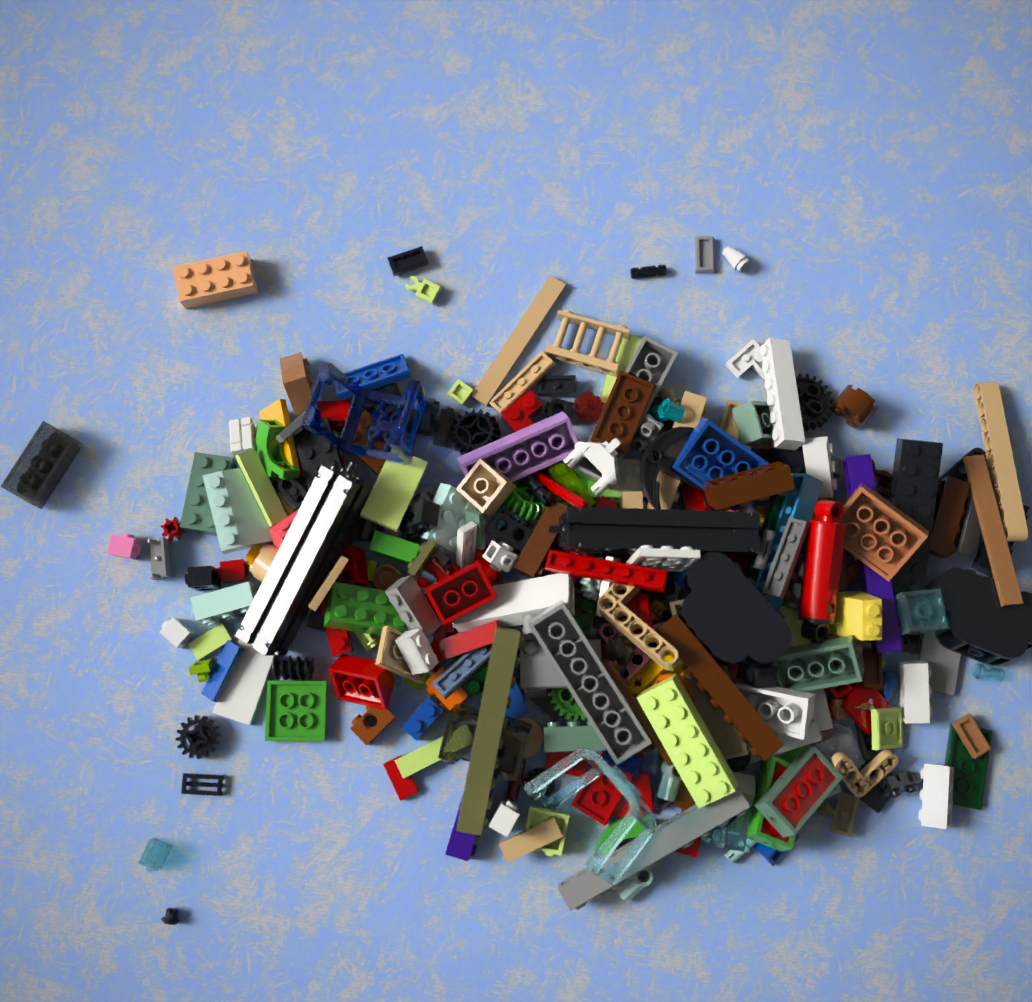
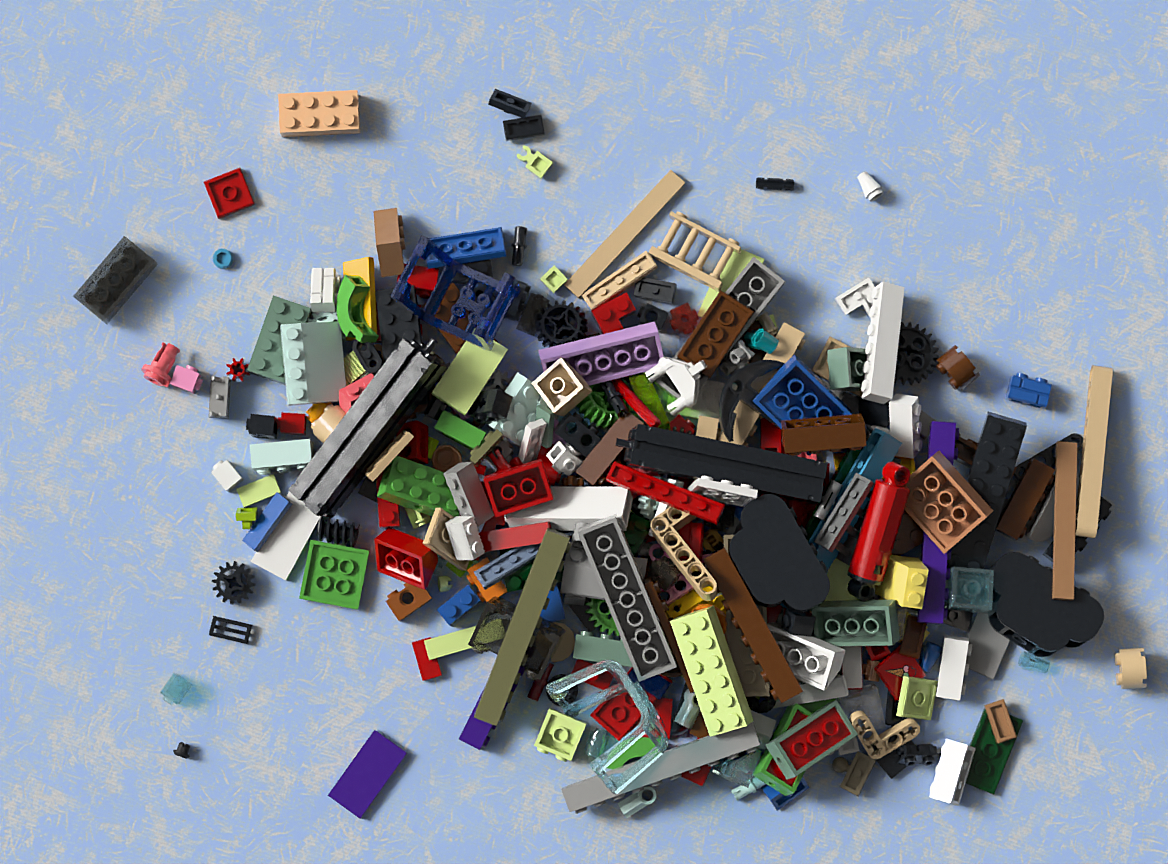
camera: 10 degrees right, 5 degrees up
(97, 539) = (160, 367): none -> coral piece
(142, 367) = (229, 193): none -> red tile
(145, 428) = (223, 258): none -> dark azure tile
(261, 487) = (336, 345): yellowish green tile -> none
(293, 428) = (378, 290): light grey plate -> none
(360, 906) = (367, 774): none -> dark purple tile
(391, 242) = (509, 103): none -> black plate
(404, 700) = (443, 583): none -> yellowish green hinge
(422, 366) = (519, 245): none -> black axle
(504, 817) = (522, 713): white brick -> none
(512, 576) = (572, 481): none -> reddish brown plate
(530, 839) = (544, 739): tan tile -> none
(583, 832) = (596, 743): none -> clear light blue brick
(704, 254) = (837, 175): light grey tile -> none
(924, 417) = (1028, 391): none -> blue brick

